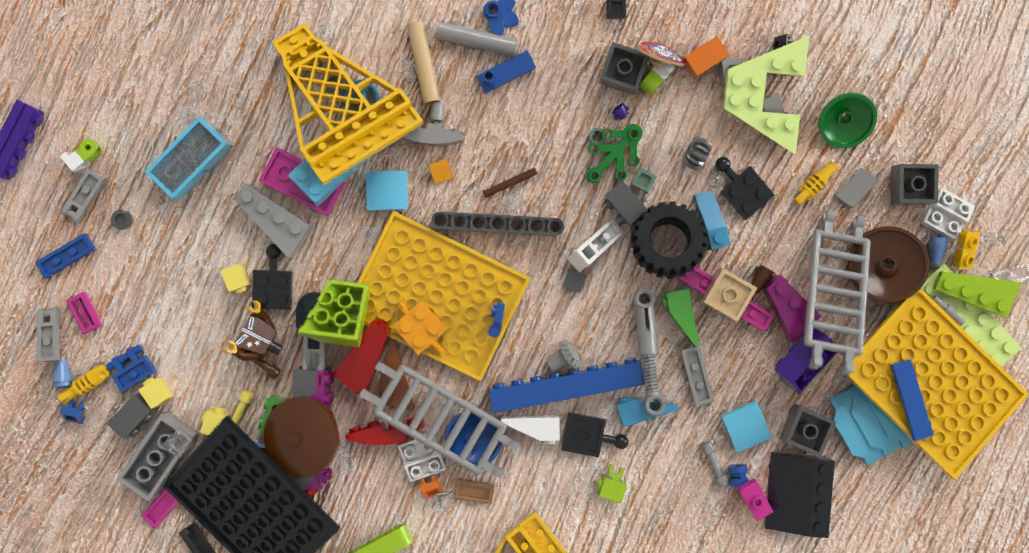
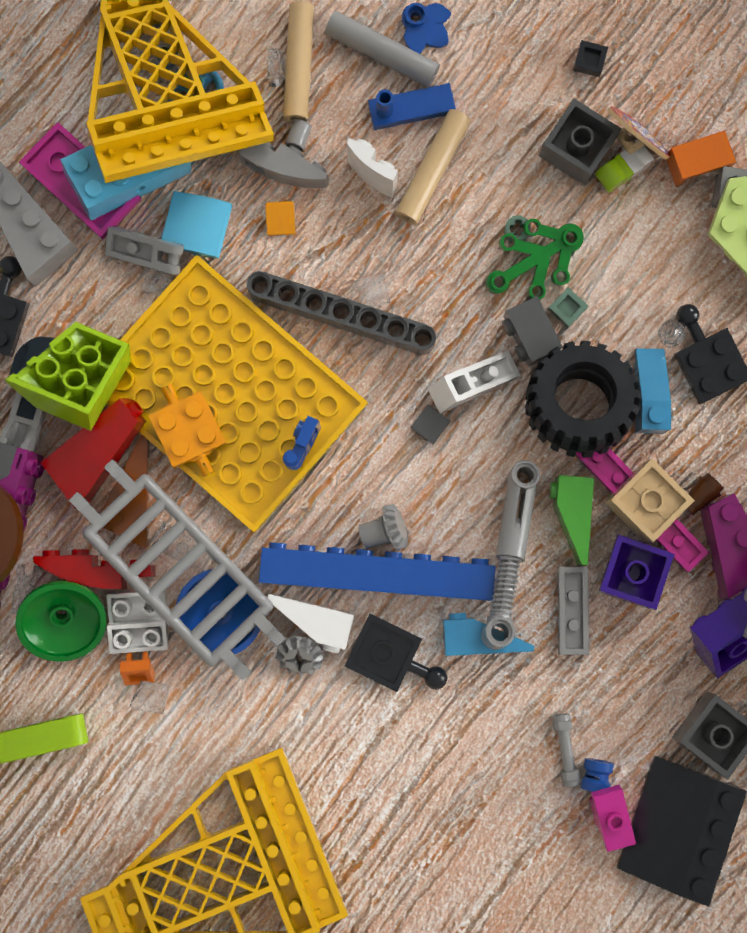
camera: 15 degrees right, 5 degrees down
(357, 217) = (143, 250): none -> light grey plate
(374, 479) = (60, 635): none -> green dish
(474, 490) = (200, 693): medium nougat tile -> none
(485, 120) = (378, 174): none -> white slope
(510, 182) = (374, 261): reddish brown bar -> none
(531, 110) = (433, 167): none -> tan piece
(537, 447) = (307, 648): none -> light grey gear
(612, 487) = (404, 742): lime brick -> none
(620, 112) = (559, 203): dark purple plate -> none
(697, 153) = (654, 288): flat silver gear -> none
(731, 342) = (636, 572): none -> dark purple brick
(746, 426) = (627, 706): medium azure slope -> none

